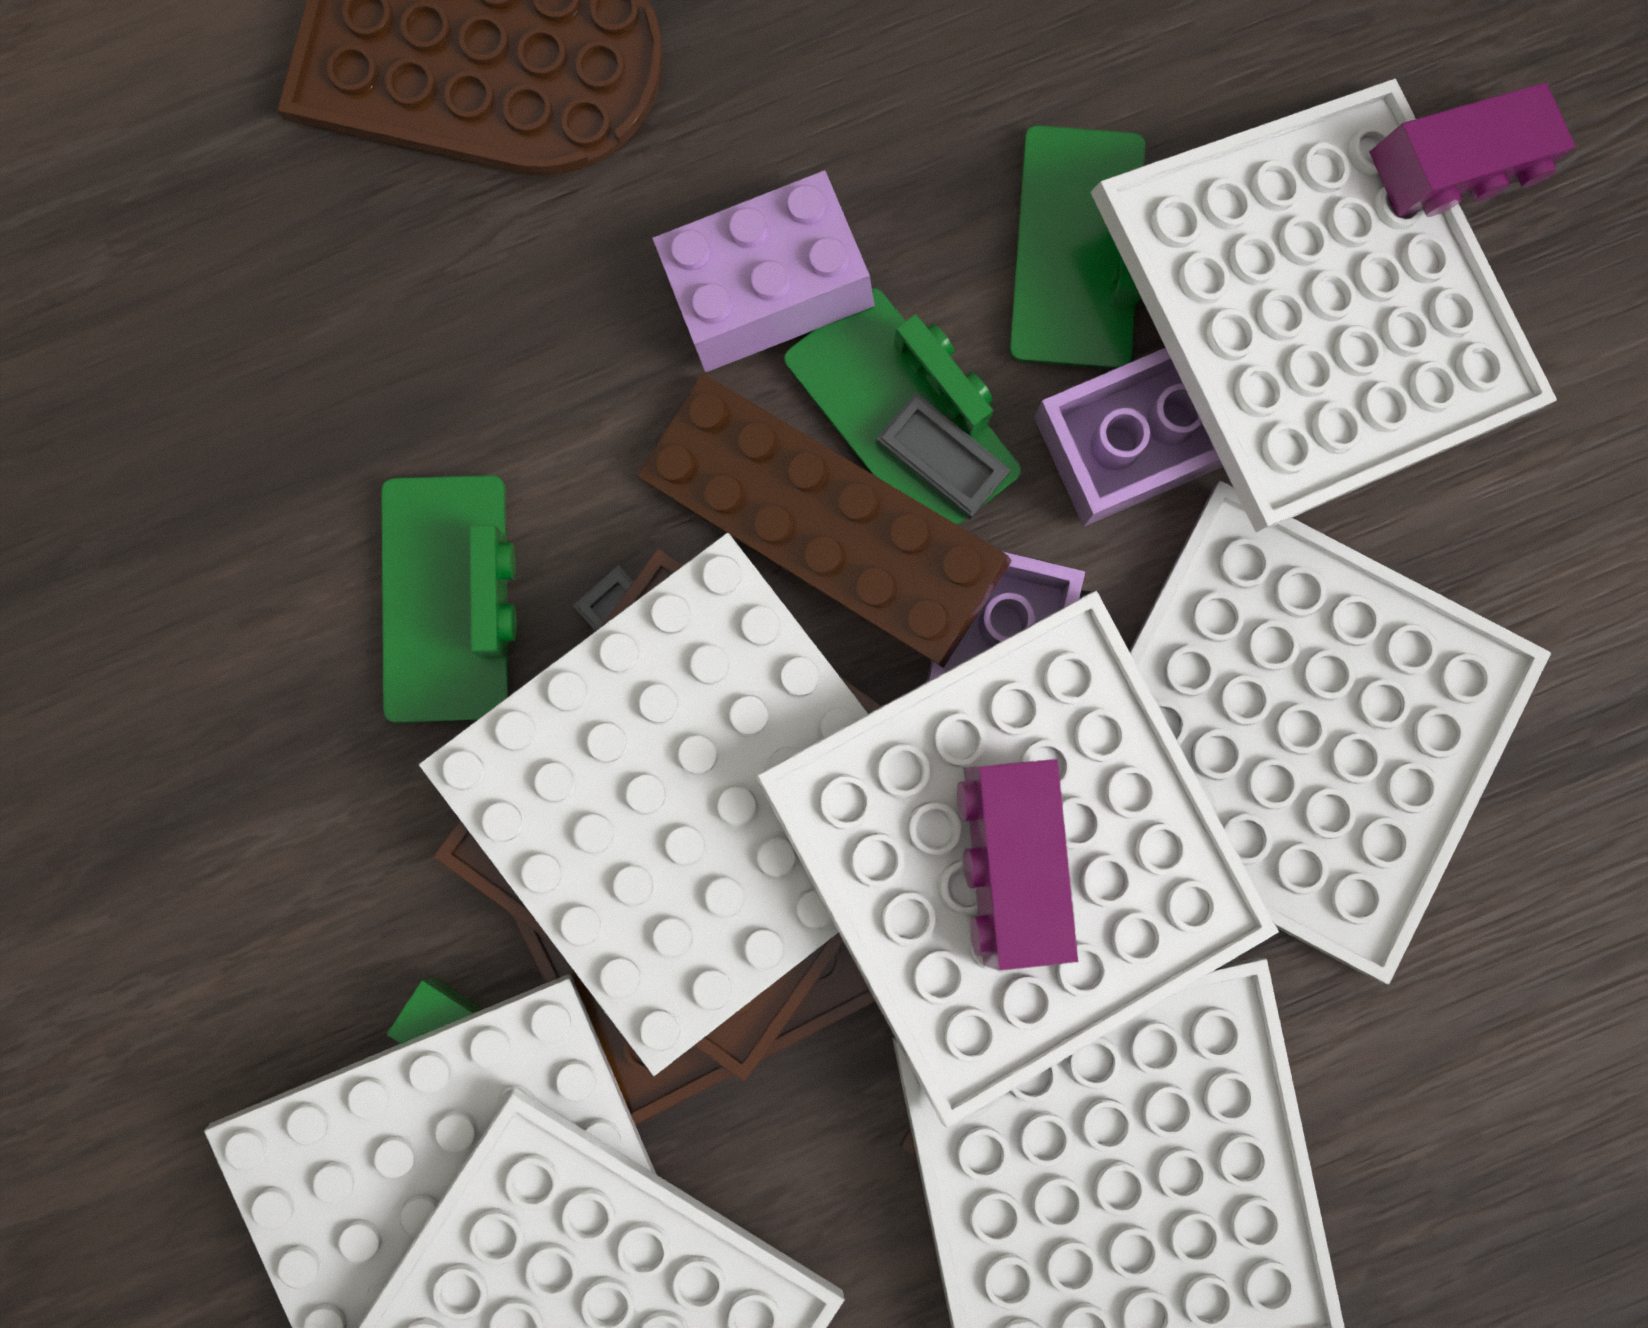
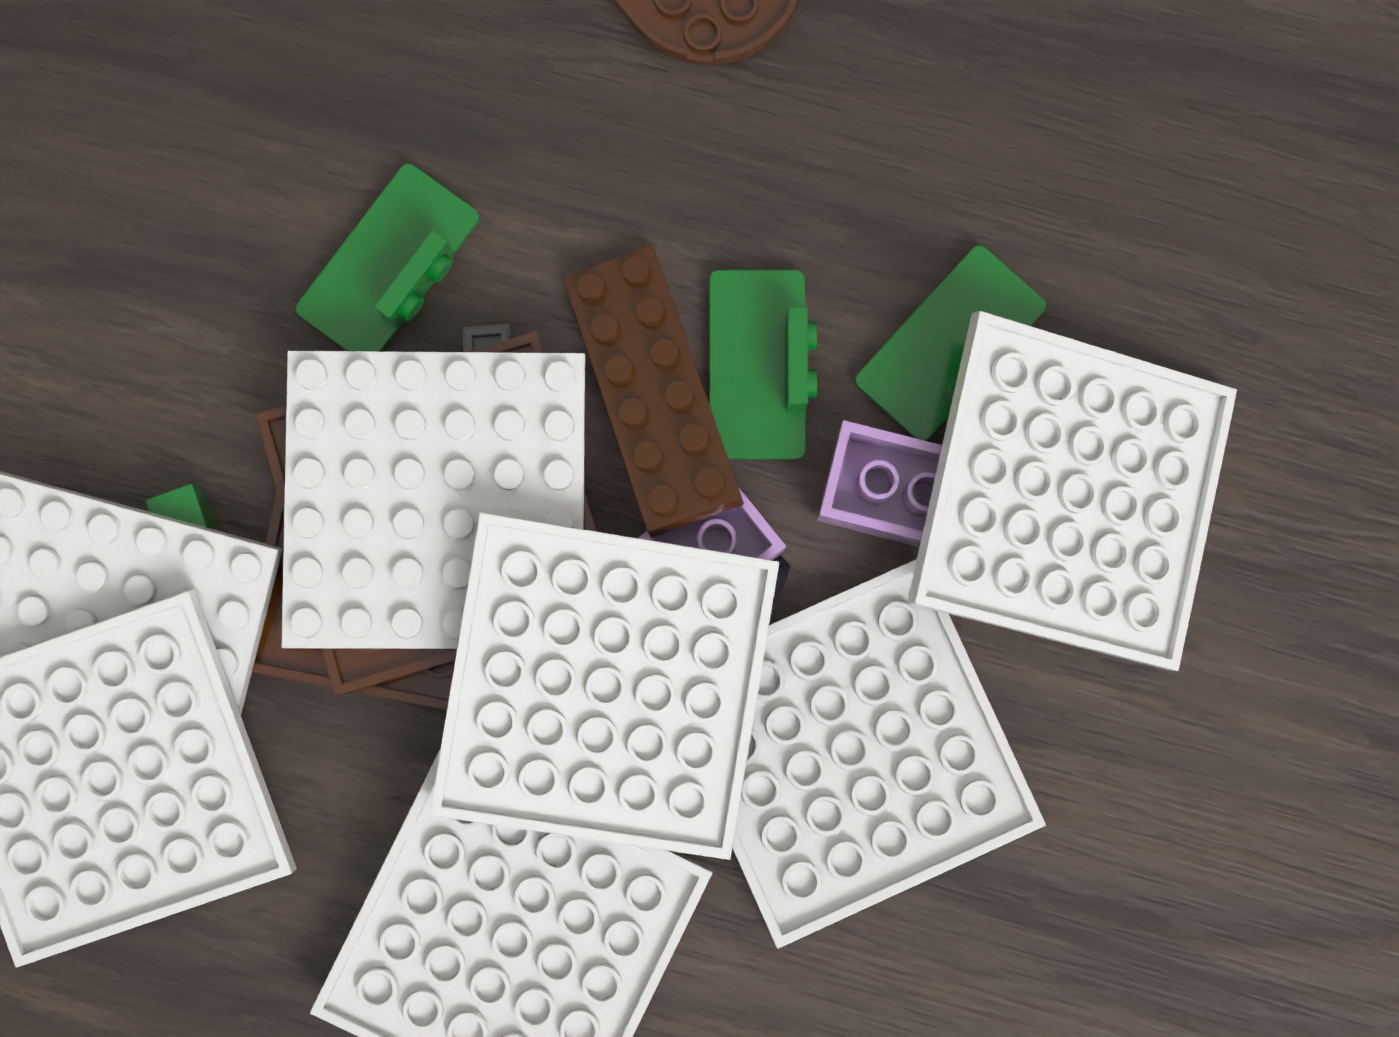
camera: 40 degrees right, 0 degrees up
(765, 271) = (737, 209): lavender brick -> none
(943, 456) = (760, 409): dark grey tile -> none
(1018, 865) = (594, 688): magenta brick -> none
(1472, 151) = (1246, 472): magenta brick -> none

